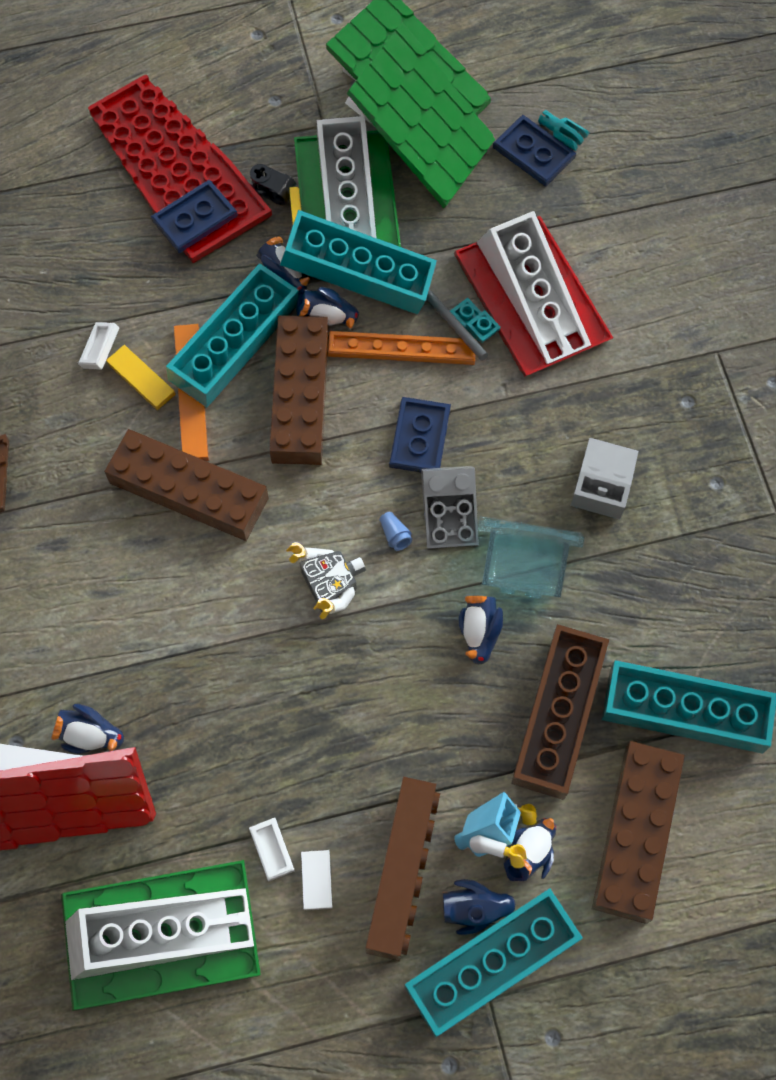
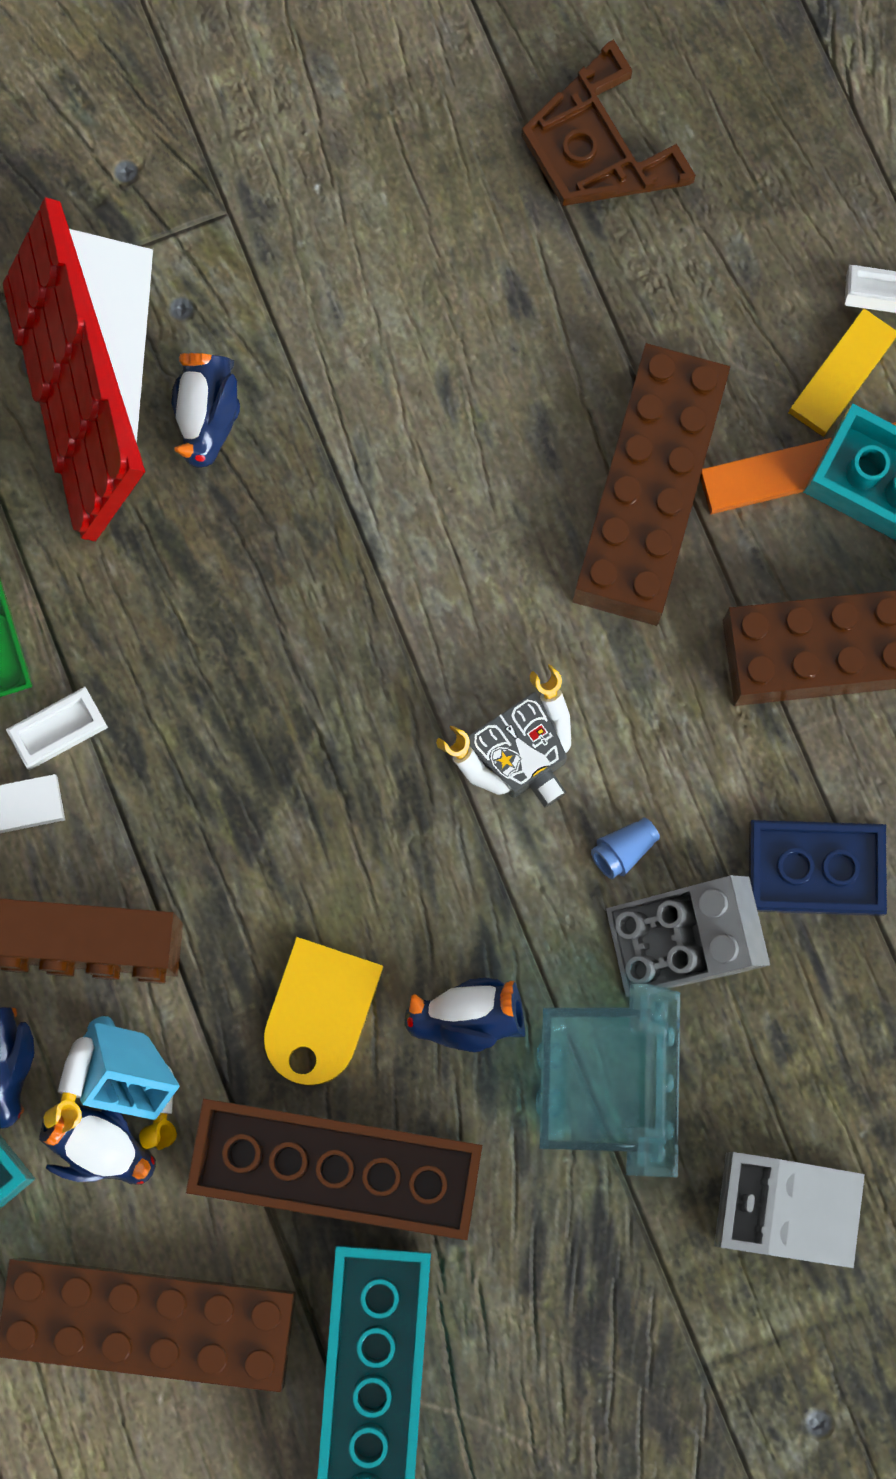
camera: 80 degrees right, 10 degrees up
(464, 712) = (320, 1009): none -> yellow tile

